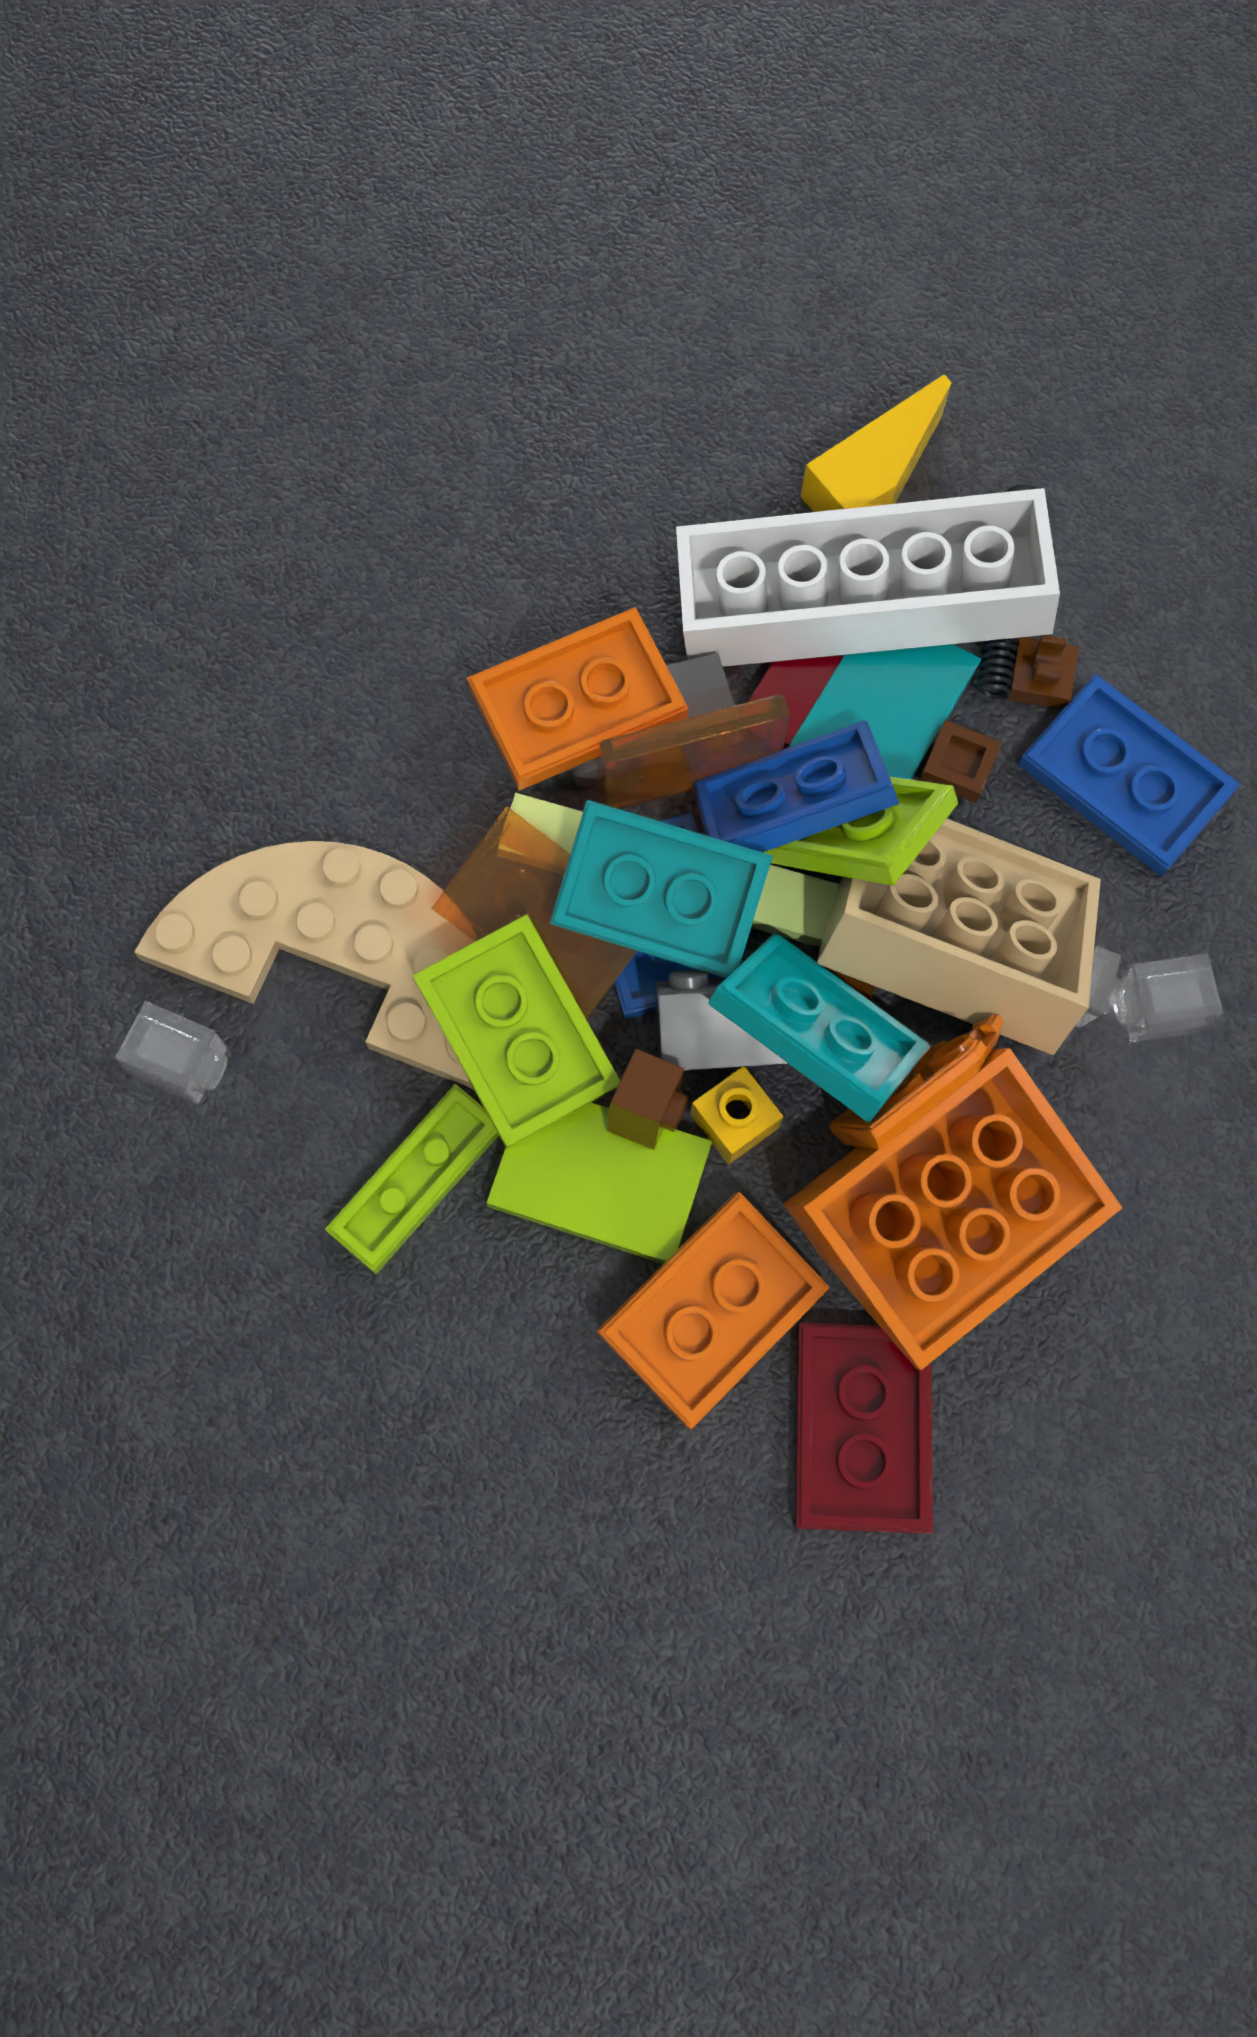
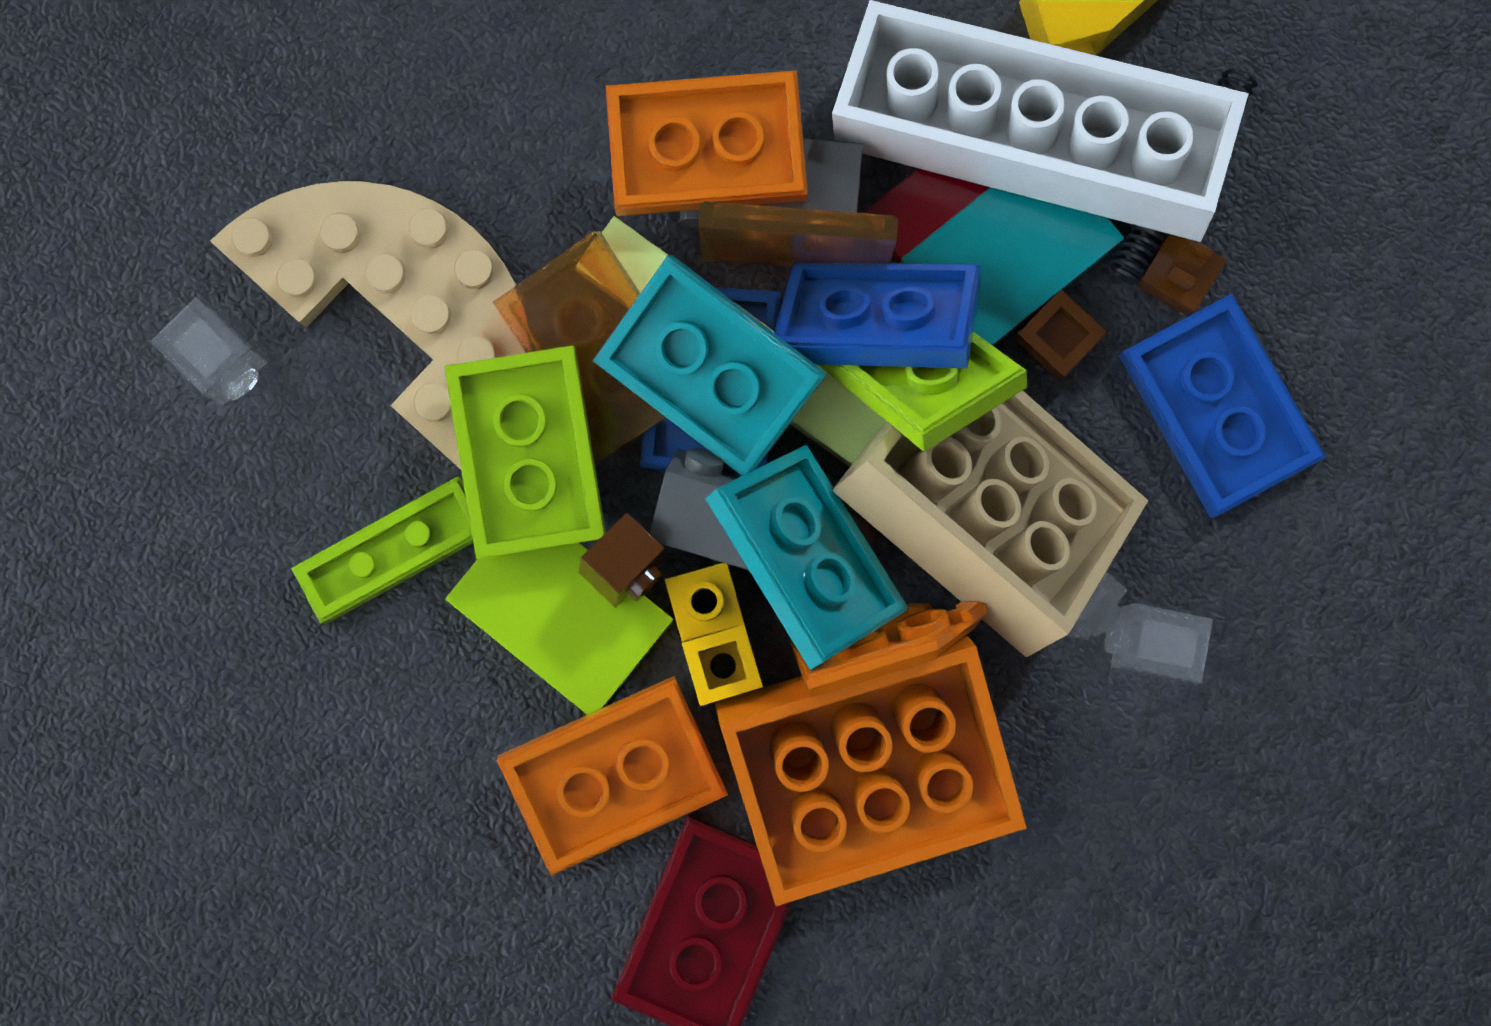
camera: 25 degrees right, 10 degrees up
(781, 1143) = (702, 651): none -> yellow plate

